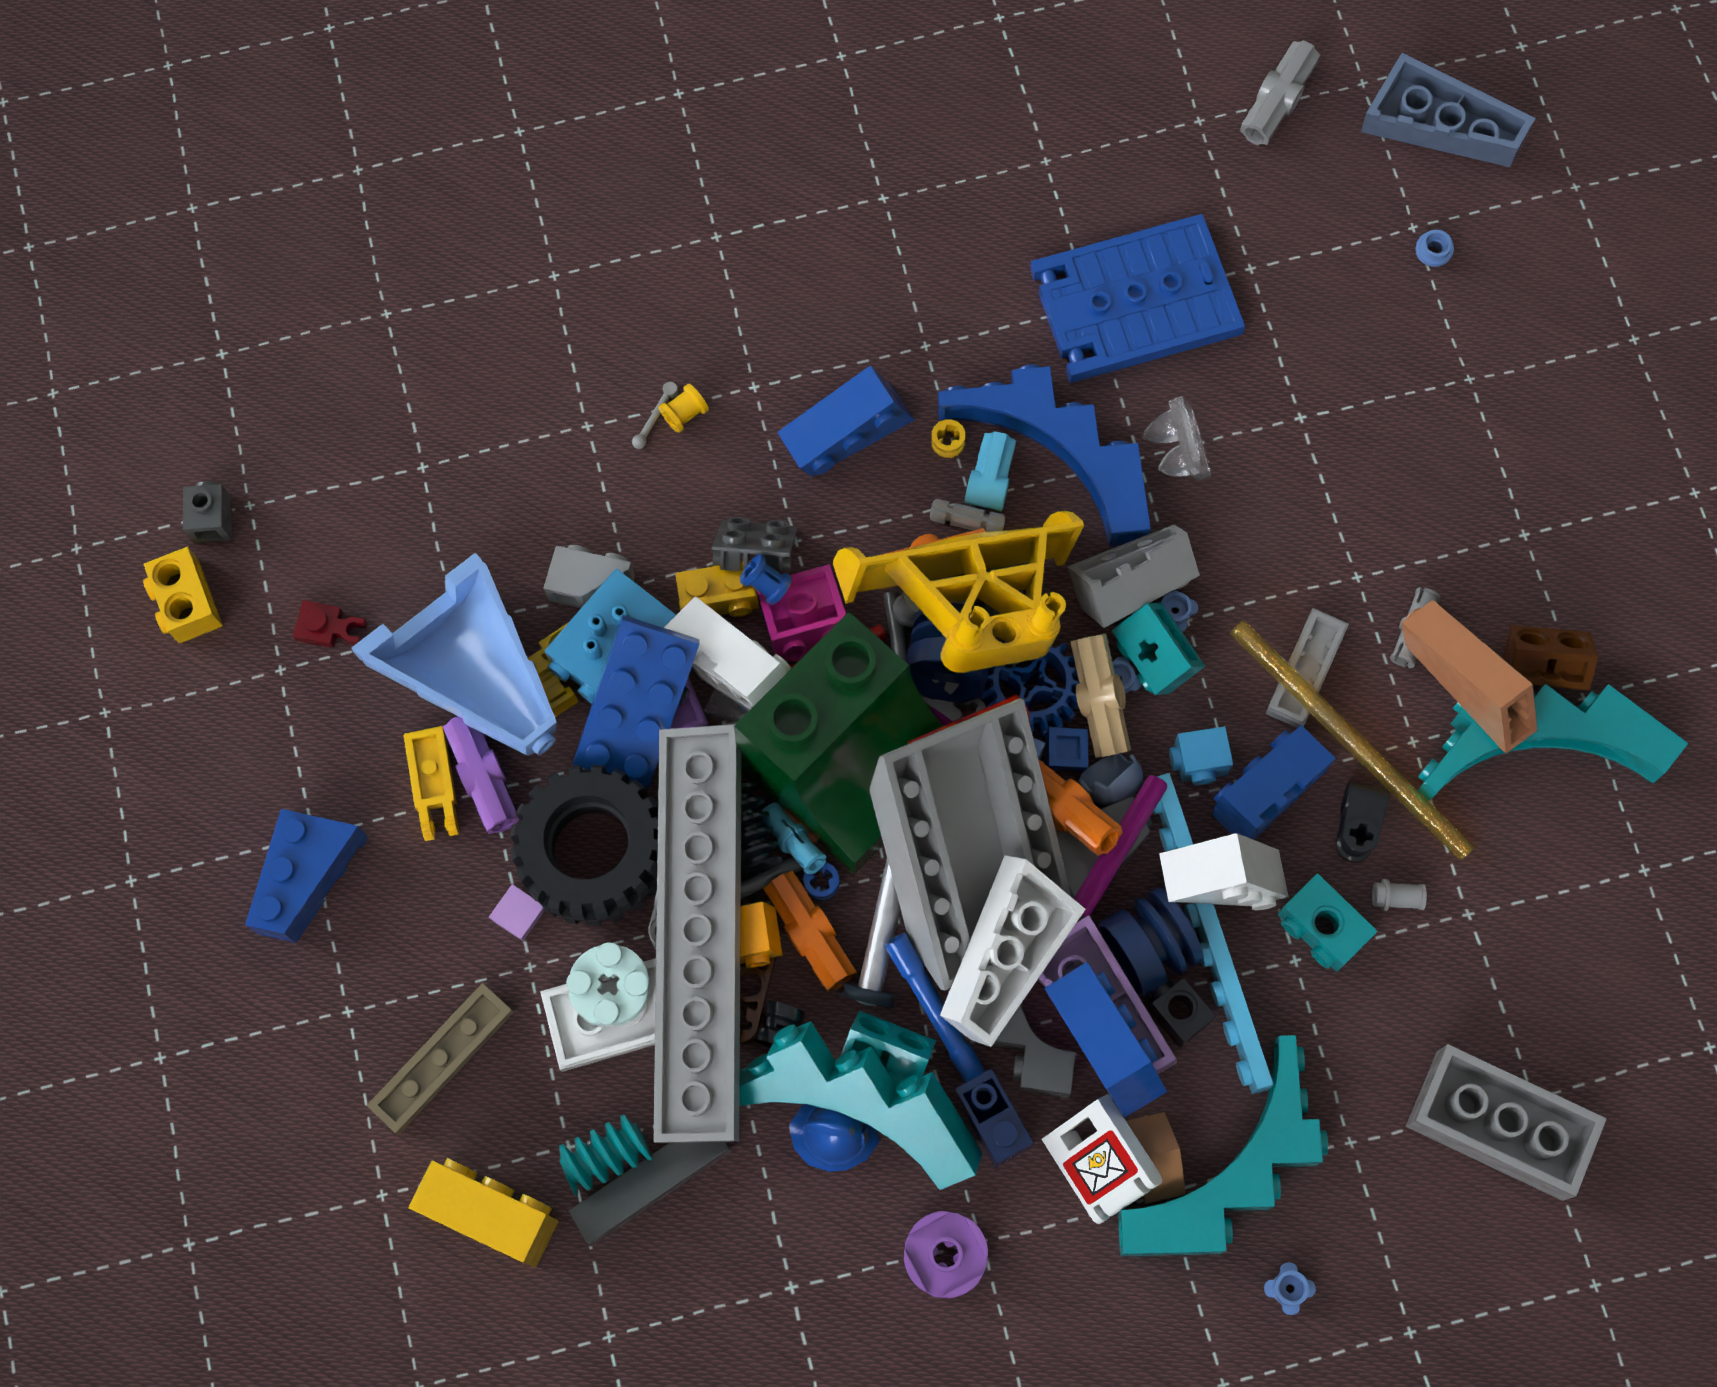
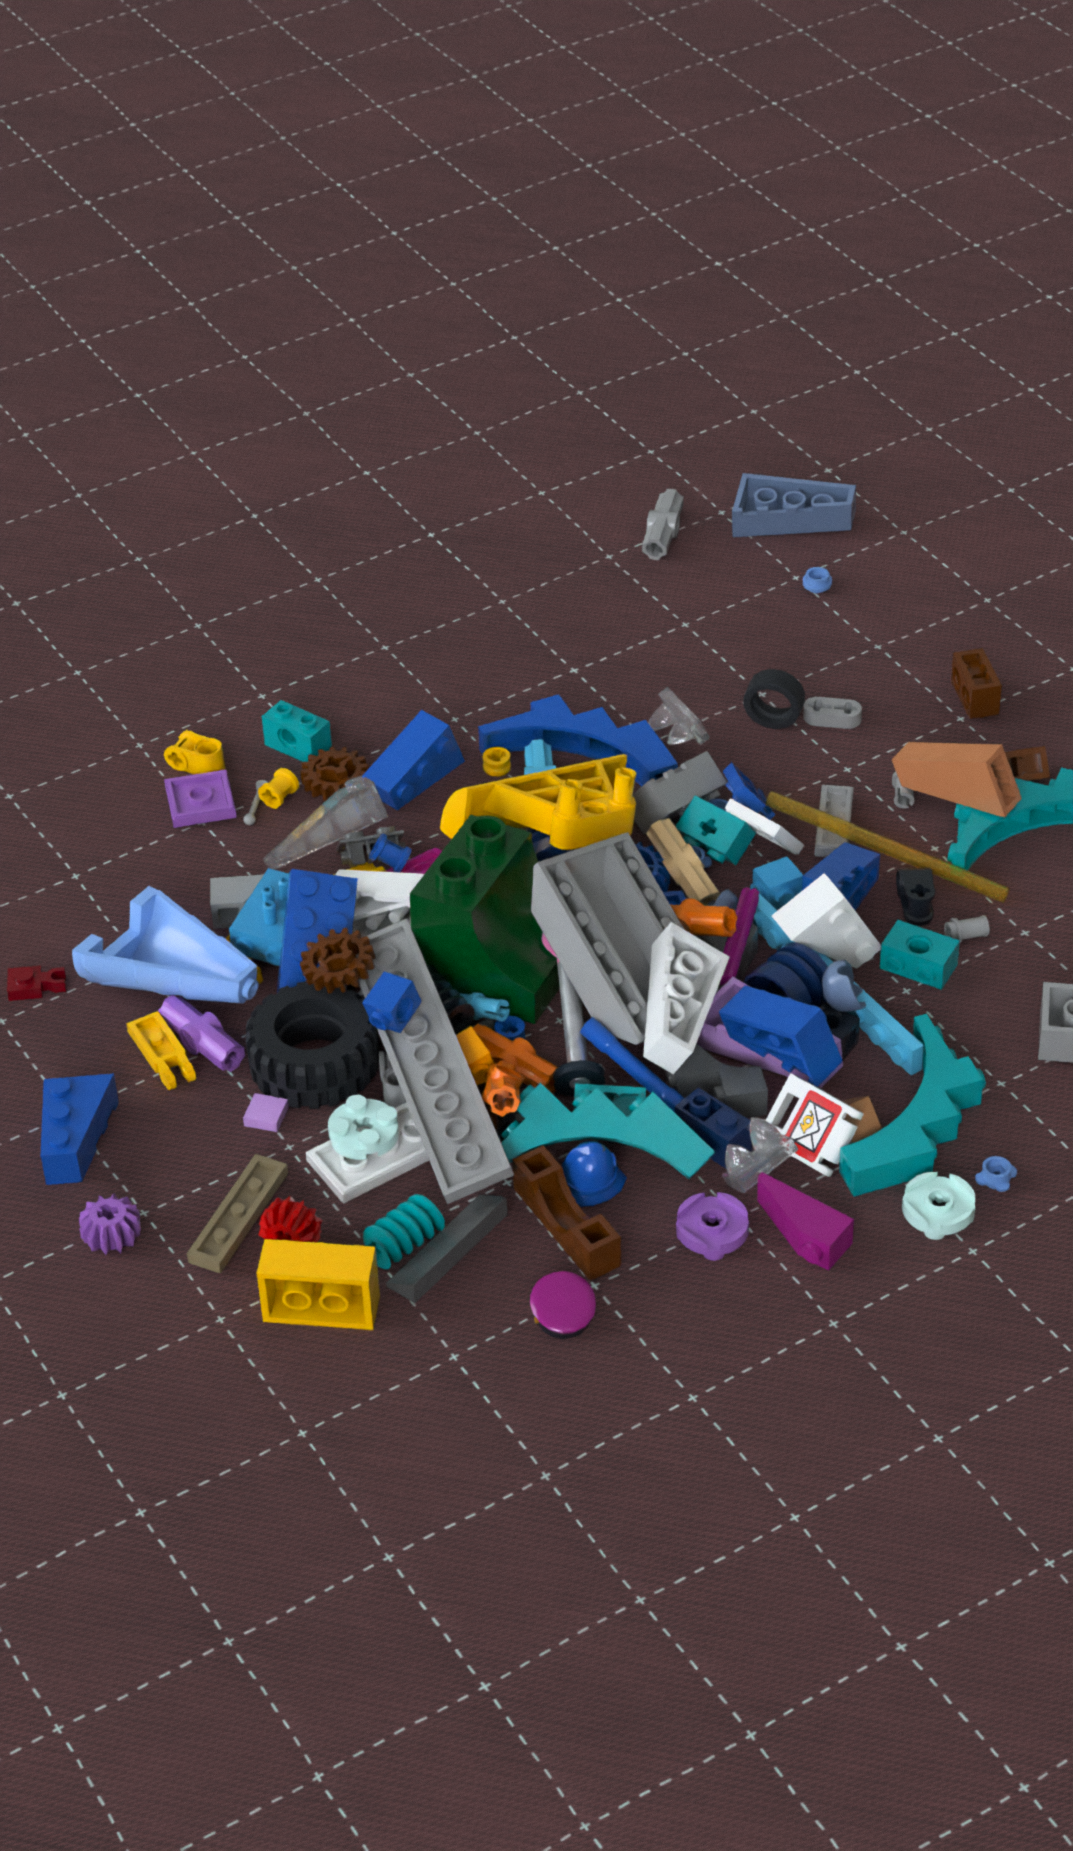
camera: 20 degrees left, 30 degrees down
(282, 1033) = (109, 1224): none -> medium lavender gear
(483, 1113) = (290, 1222): none -> red gear
(591, 395) = (200, 798): none -> medium lavender plate
(603, 320) = (195, 754): none -> yellow piece
(625, 771) = (337, 960): none -> reddish brown gear
(676, 855) = (391, 1002): none -> blue brick
(727, 496) = (343, 813): none -> clear wedge
(730, 326) = (295, 731): none -> teal brick
(741, 1321) = (562, 1304): none -> magenta piece
(763, 1017) = (502, 1088): none -> orange piece
(771, 402) = (331, 770): none -> reddish brown gear
(786, 1195) = (587, 1240): none -> reddish brown arch
(1027, 1190) = (769, 1151): none -> clear tile
(1049, 1301) = (807, 1224): none -> magenta slope
(1137, 298) = (606, 655): blue door -> none
(1193, 1334) = (938, 1220): none -> light aqua plate
(1204, 980) = (840, 987): none -> sand blue hair
(1215, 666) = (765, 827): none -> white tile
(1216, 603) = (746, 792): none -> blue plate
(1304, 453) = (778, 681): none -> black tyre
(1371, 481) = (832, 712): none -> light grey beam
(1560, 501) = (976, 683): none -> reddish brown brick

